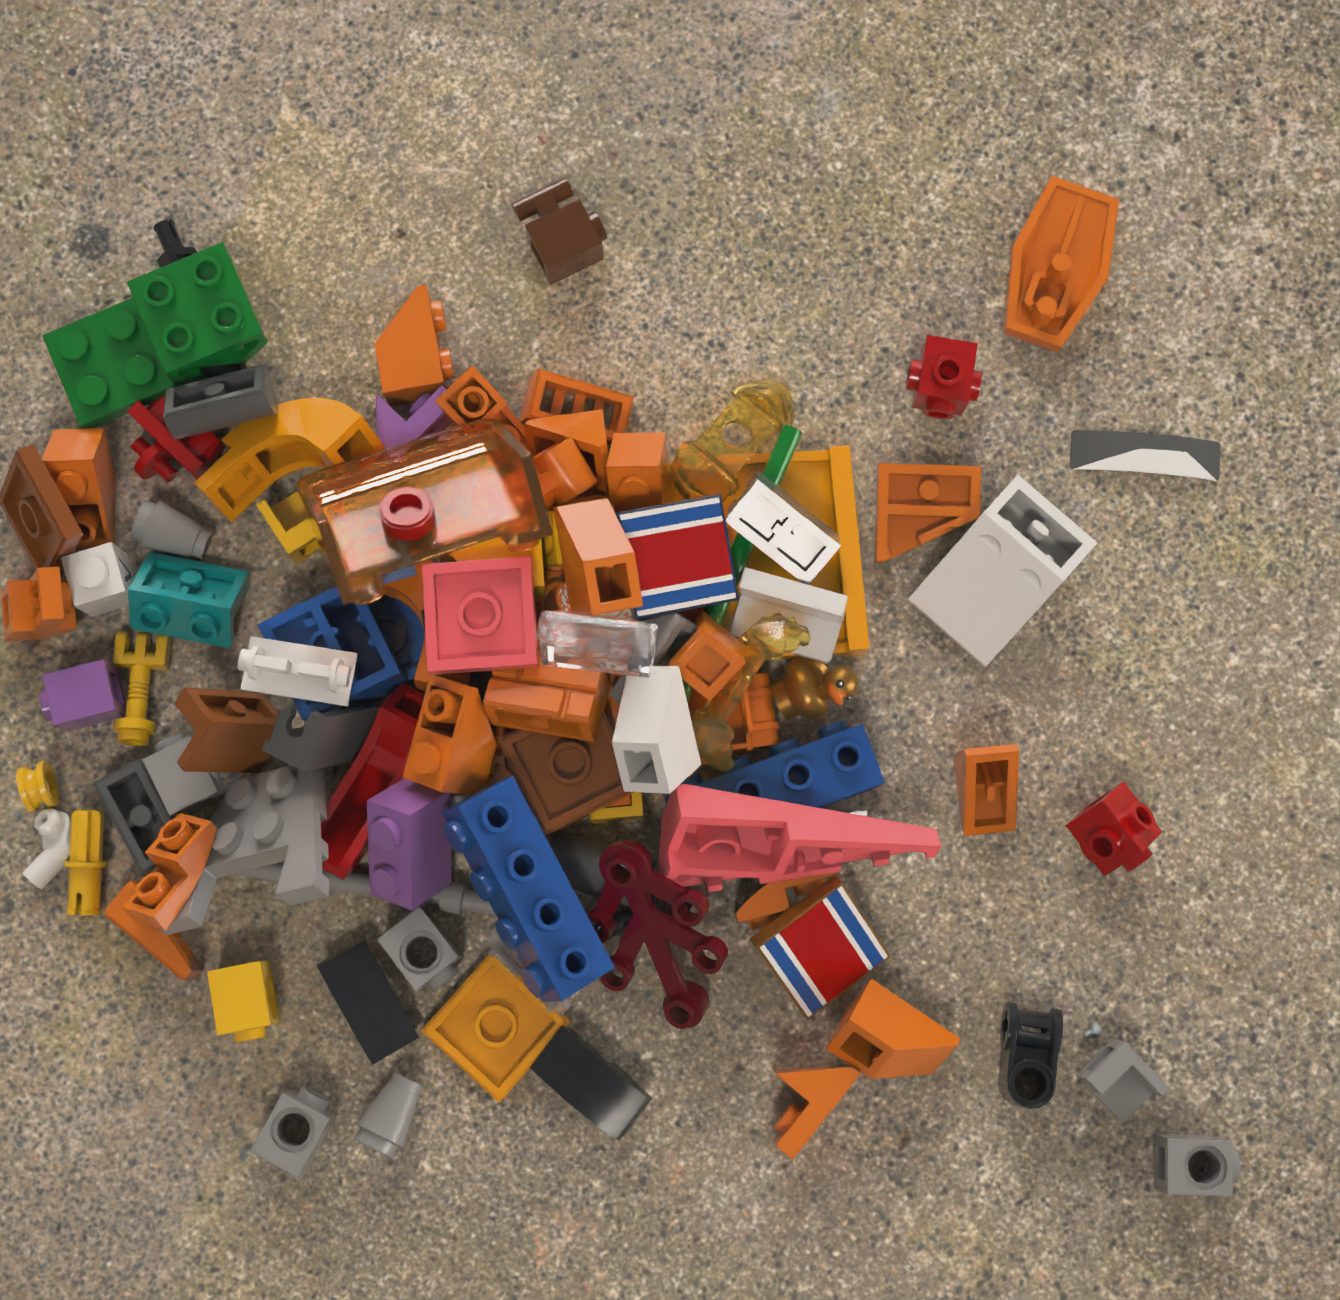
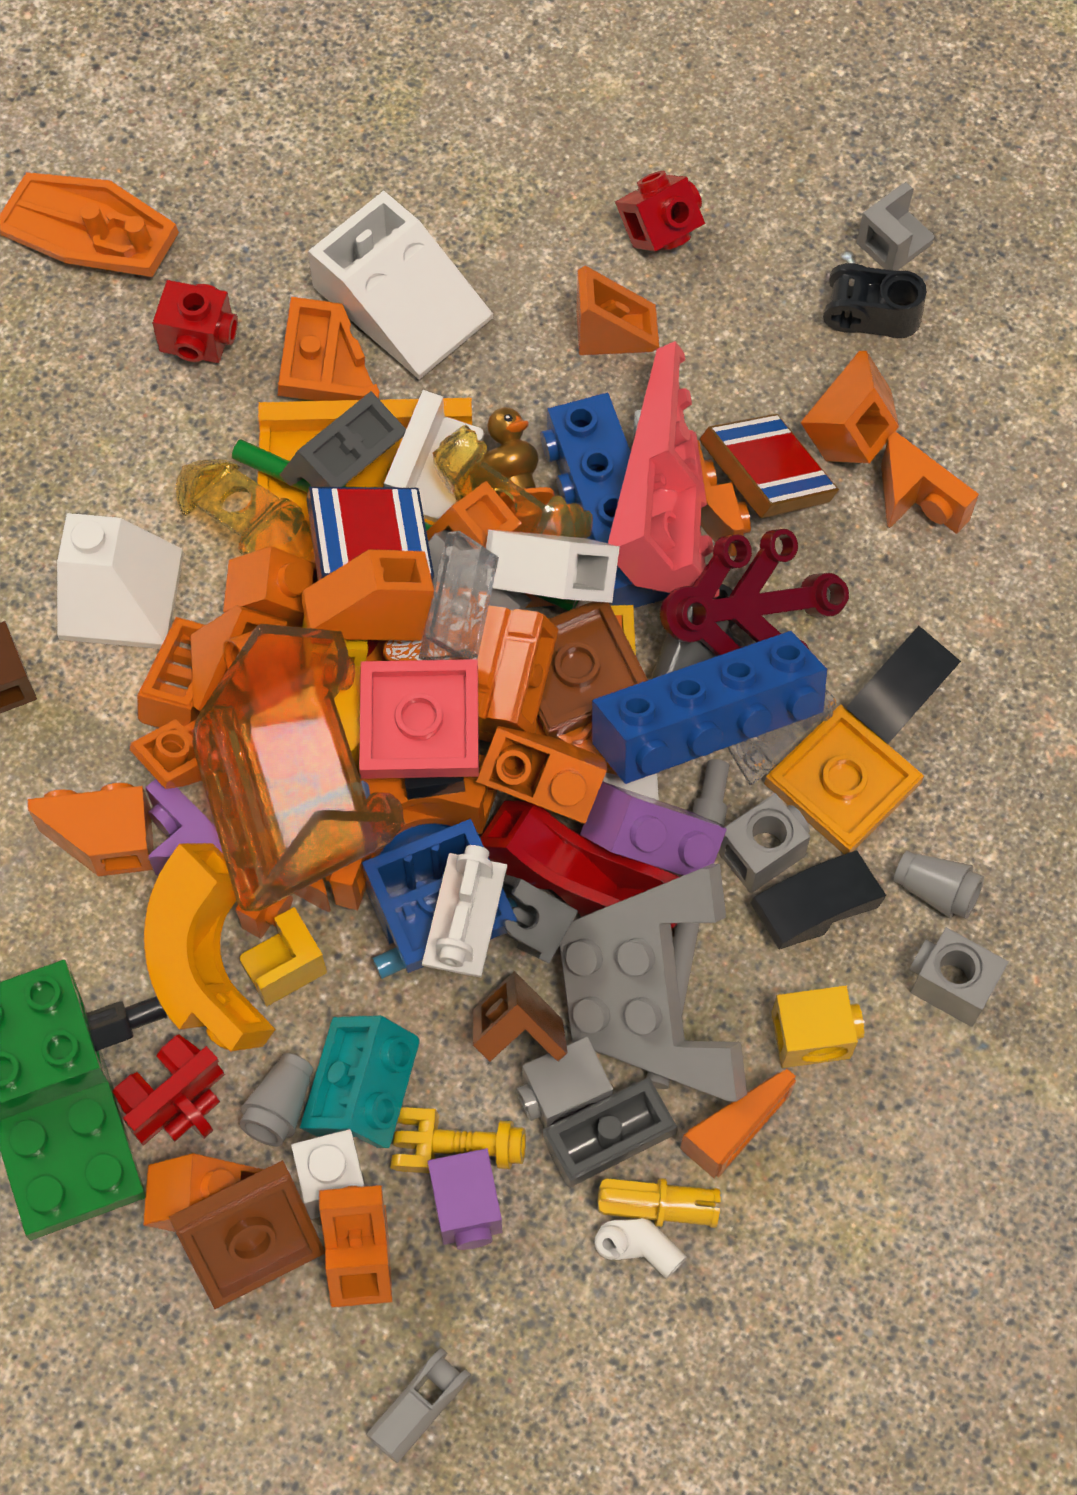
camera: 85 degrees left, 15 degrees down
(37, 786) = (568, 1255): yellow bush -> none
(179, 860) = (679, 1075): orange slope -> none
(219, 402) = (138, 1016): dark grey brick -> none
(407, 514) = (301, 785): tile -> none
(660, 338) = (115, 583): none -> white slope
(1145, 453) = (289, 175): dark grey sticker -> none
(1172, 1159) = (974, 178): light grey brick -> none

